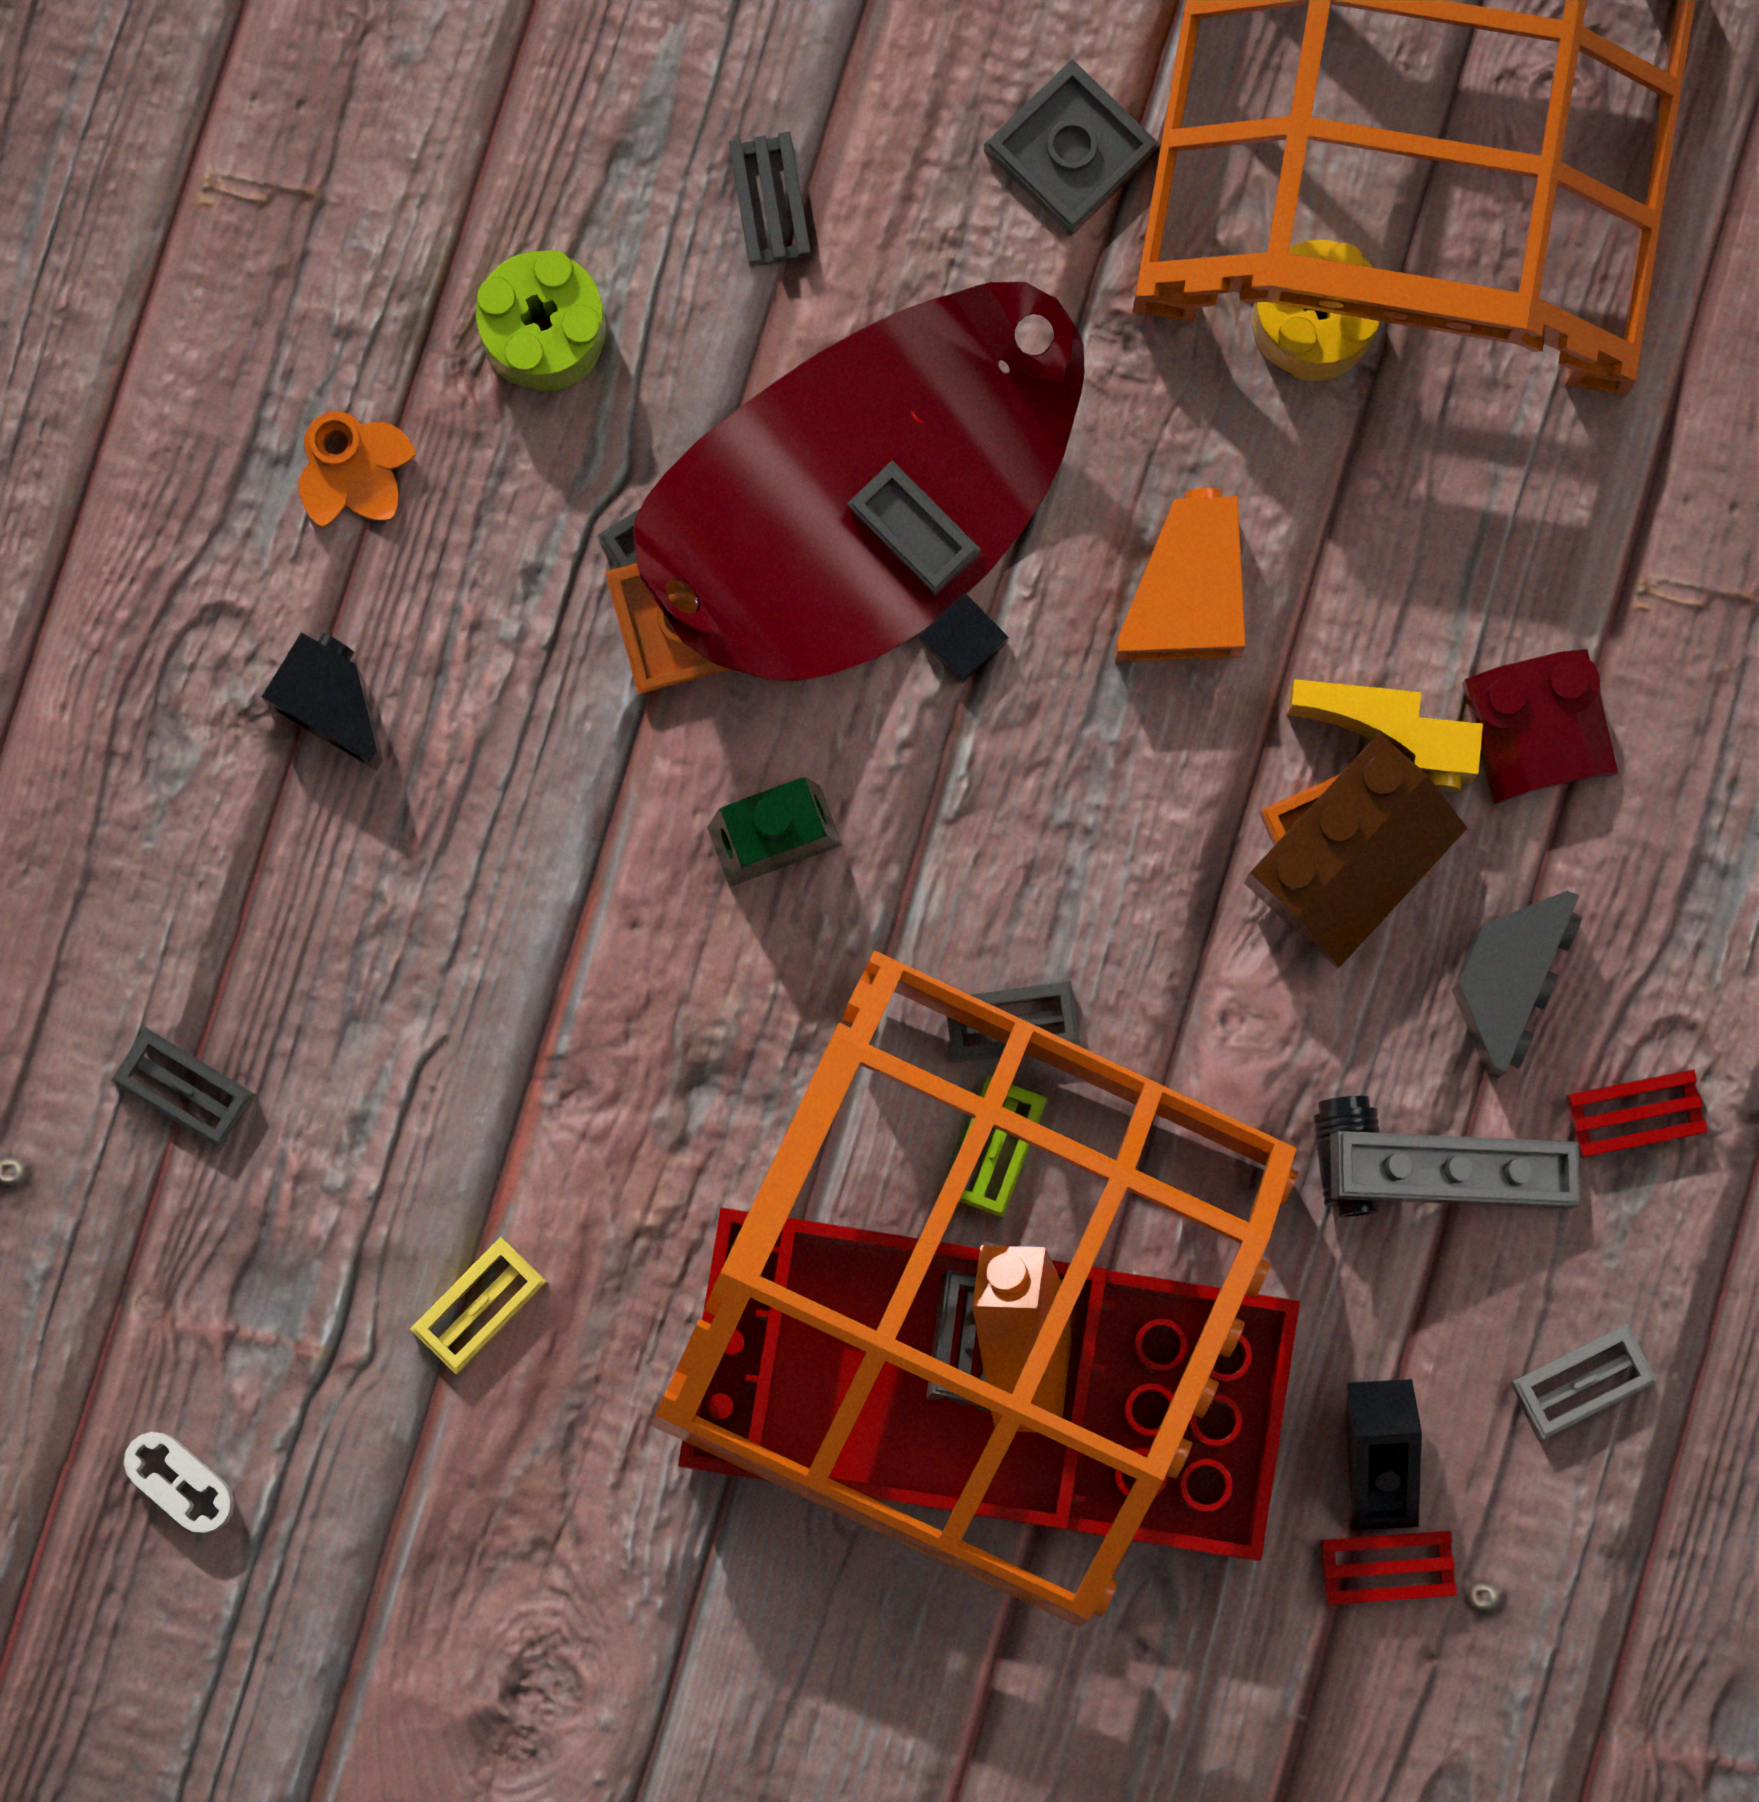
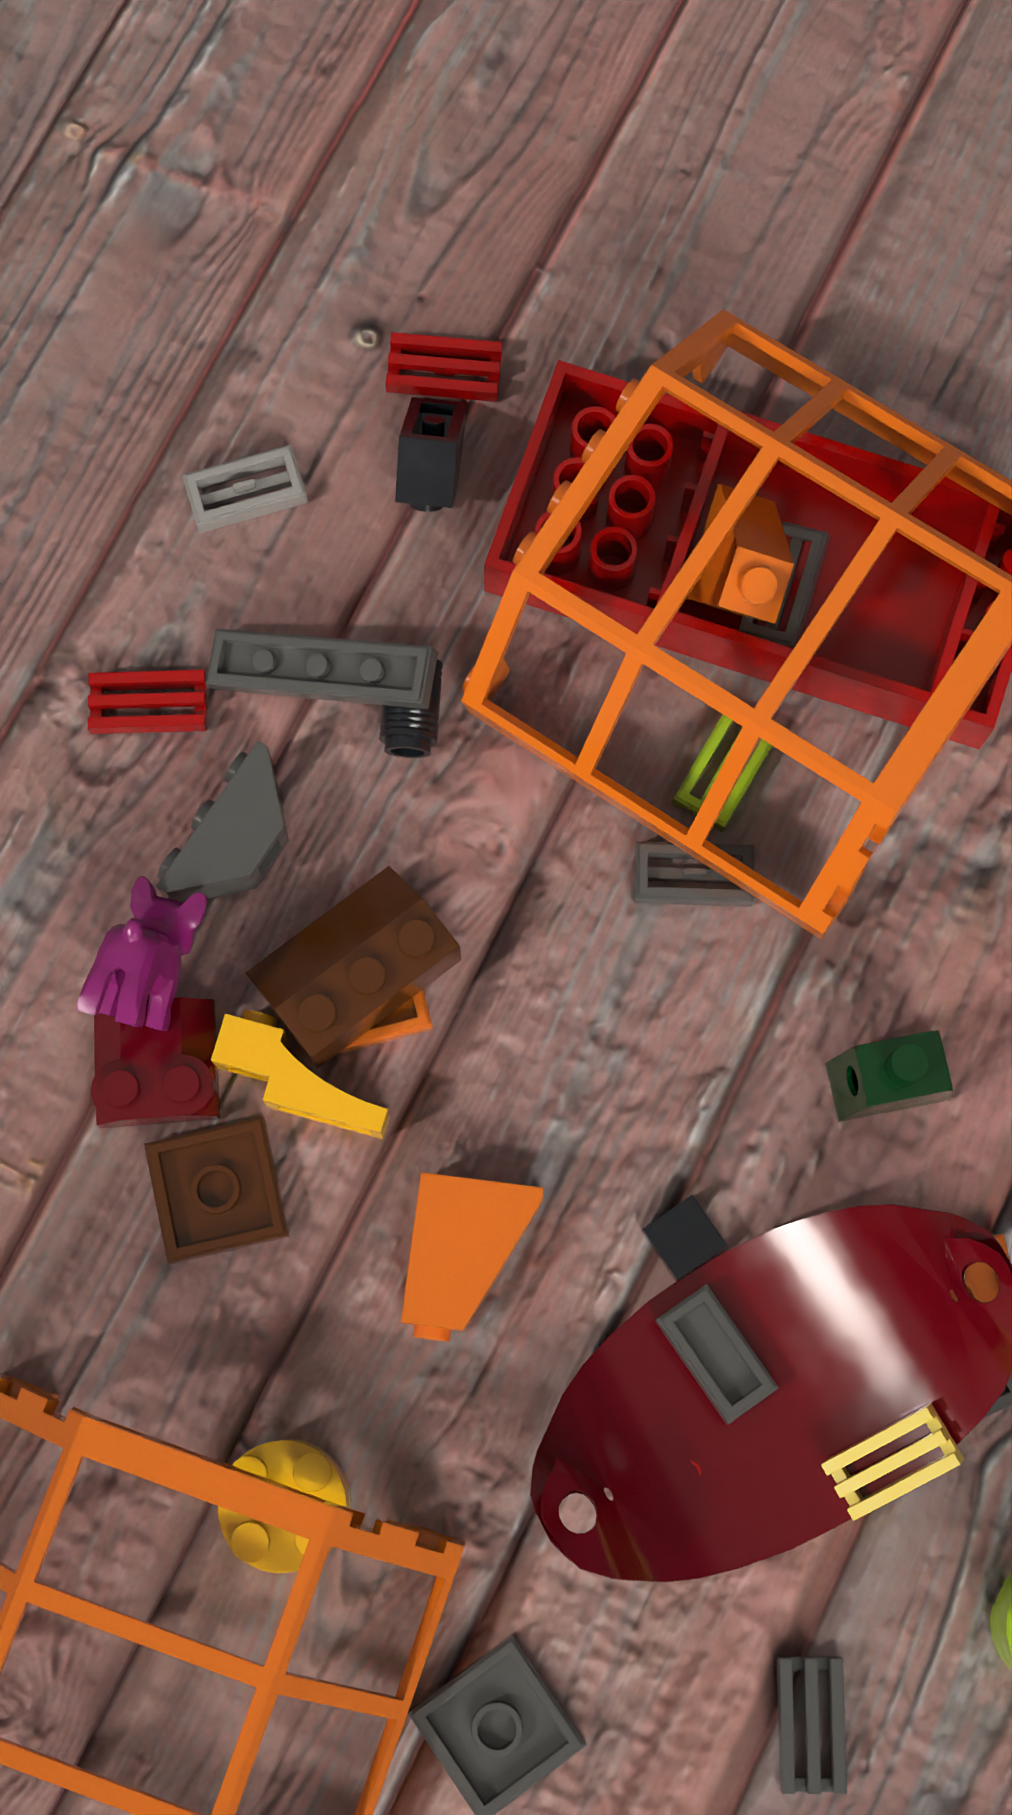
camera: 170 degrees left, 5 degrees down
(760, 423) = (848, 1486): none -> light yellow tile
(1449, 607) = (216, 1190): none -> reddish brown tile
(1572, 807) = (143, 959): none -> magenta animal

